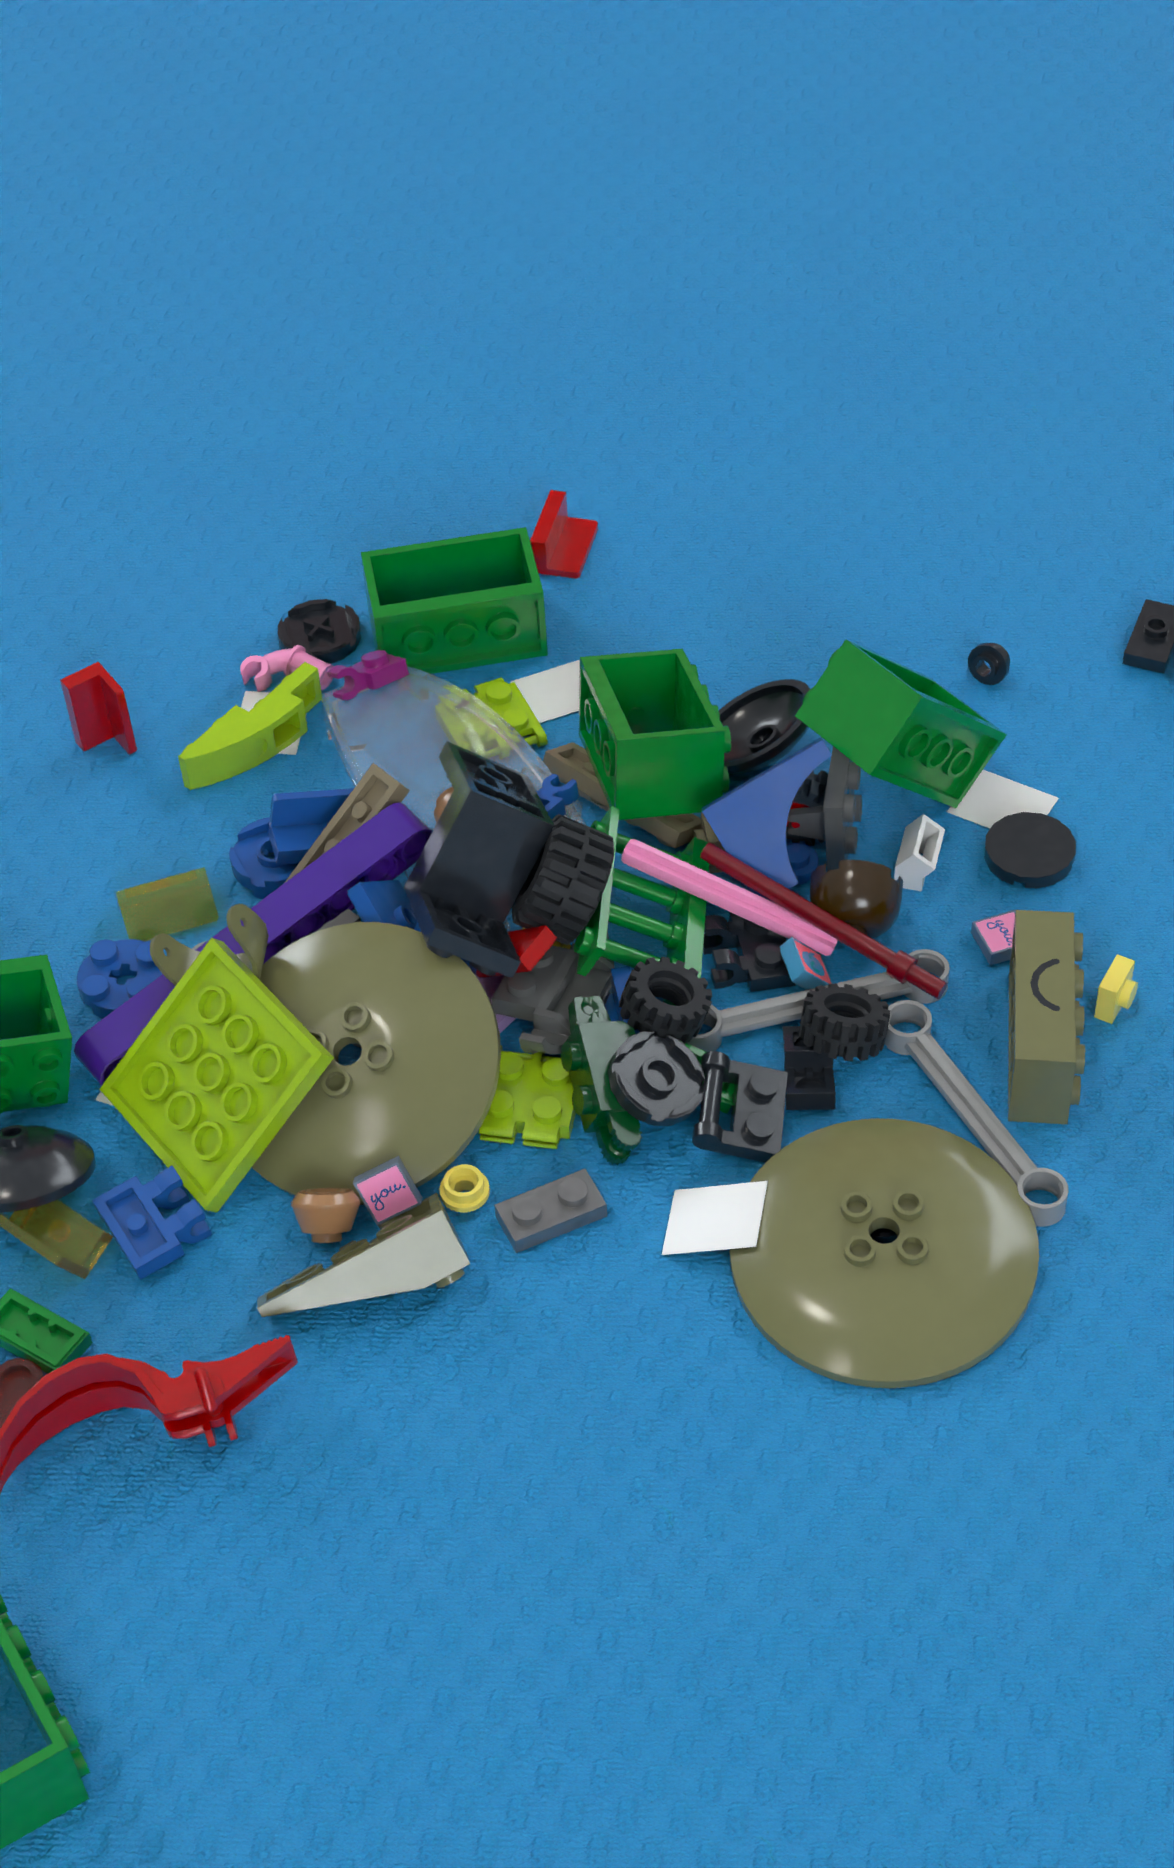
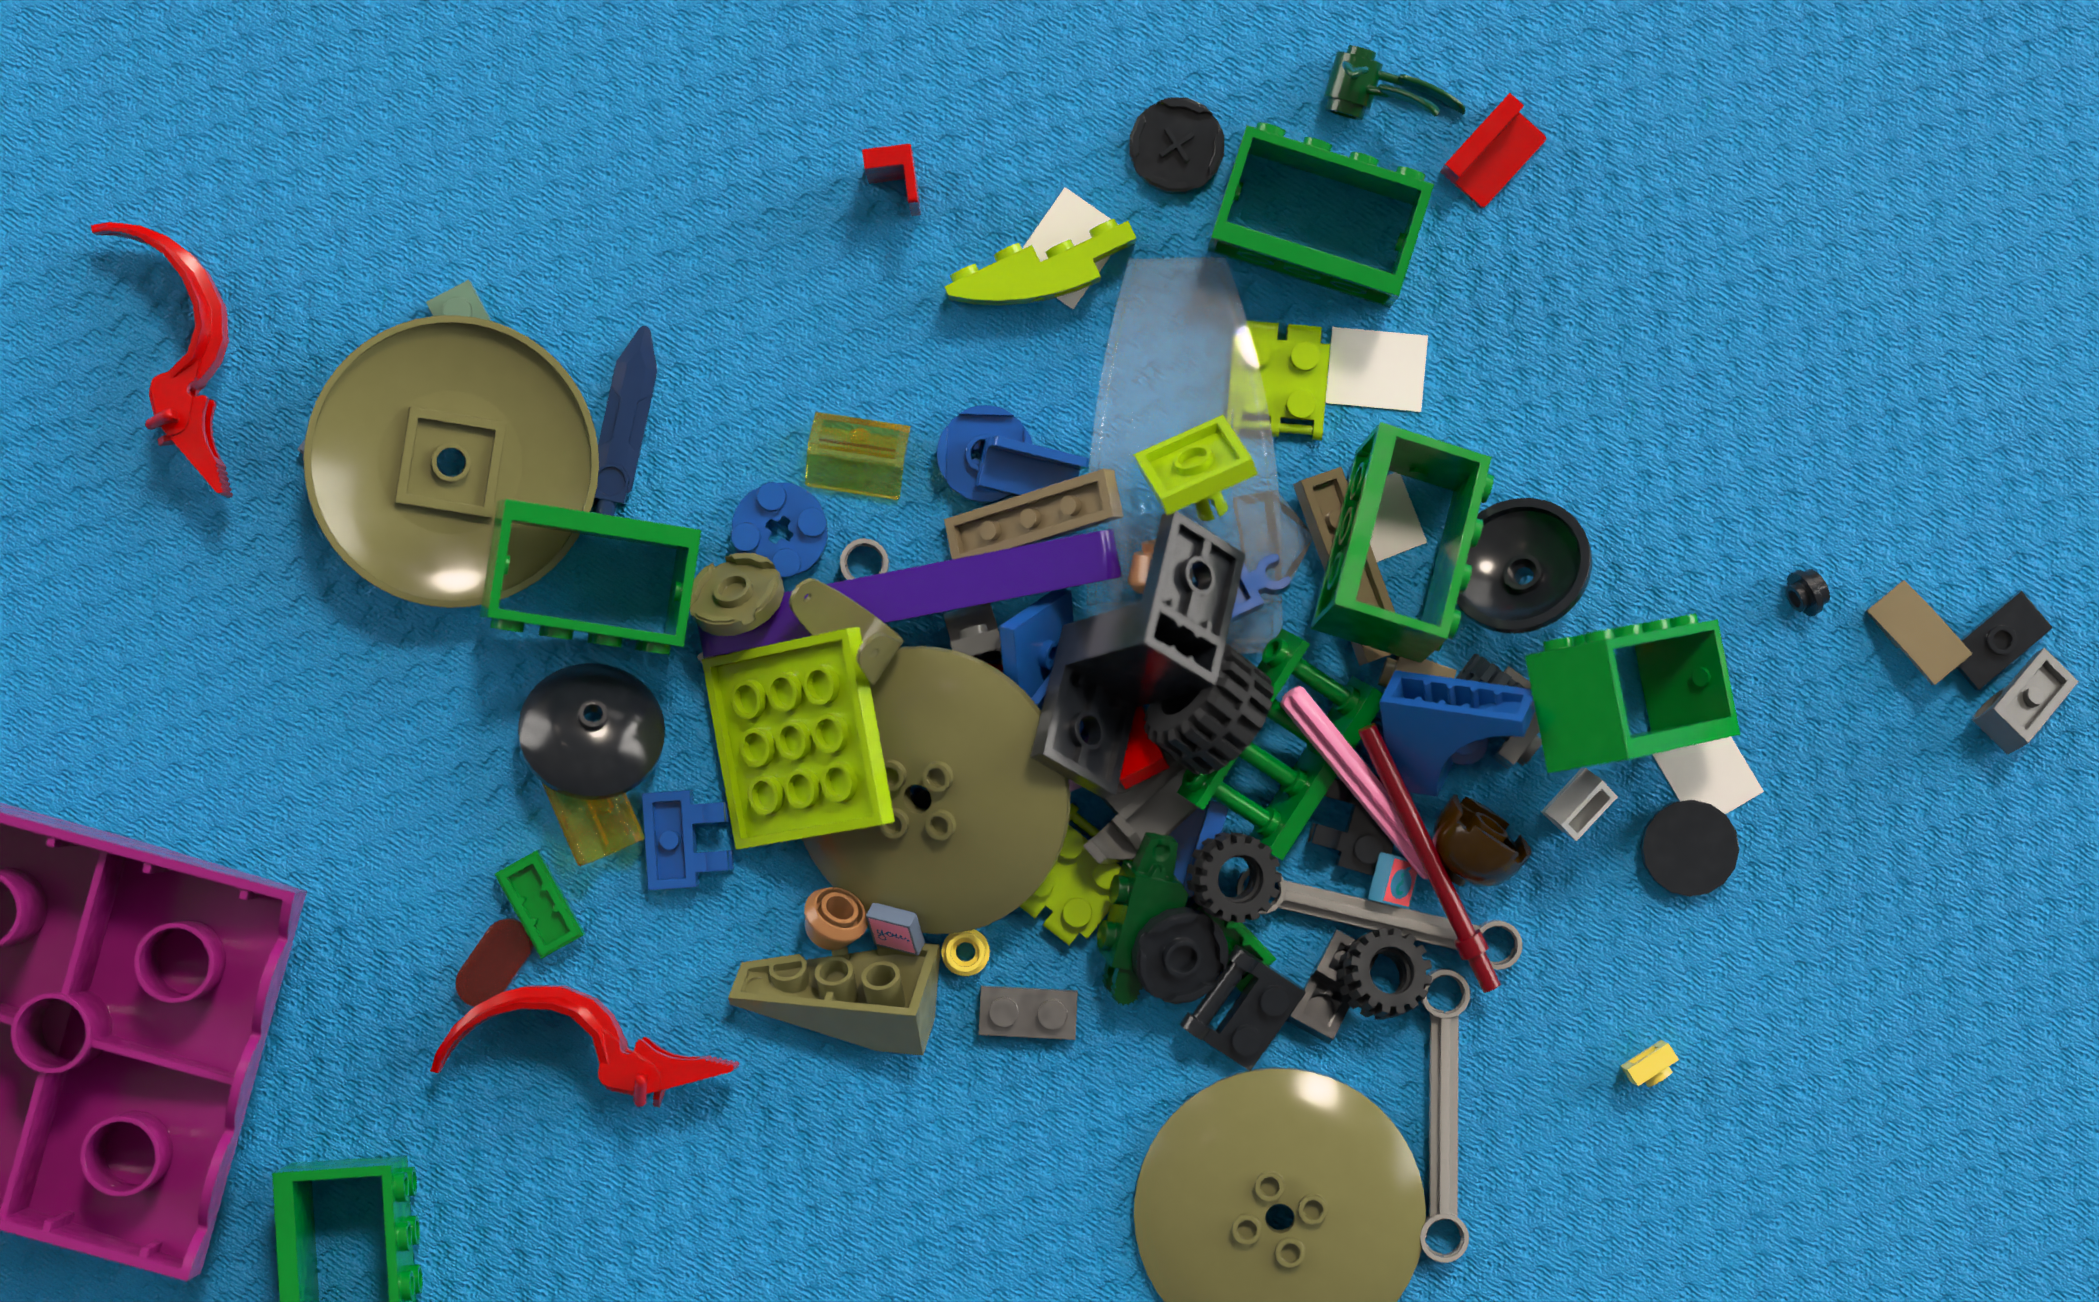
camera: 25 degrees right, 40 degrees up
(106, 1005) = (736, 594): none -> olive tile
(281, 661) = (1128, 188): bright pink piece -> none
(372, 672) = (1187, 274): magenta plate -> none
(433, 527) = (1355, 83): none -> dark green plant
(451, 729) = (1196, 468): none -> lime tile
(715, 1218) = (1157, 1105): white sticker -> none
(995, 936) = (1595, 937): tile -> none
(1045, 1017) = (1557, 1074): olive brick -> none
(1095, 647) = (1918, 632): none -> dark tan slope

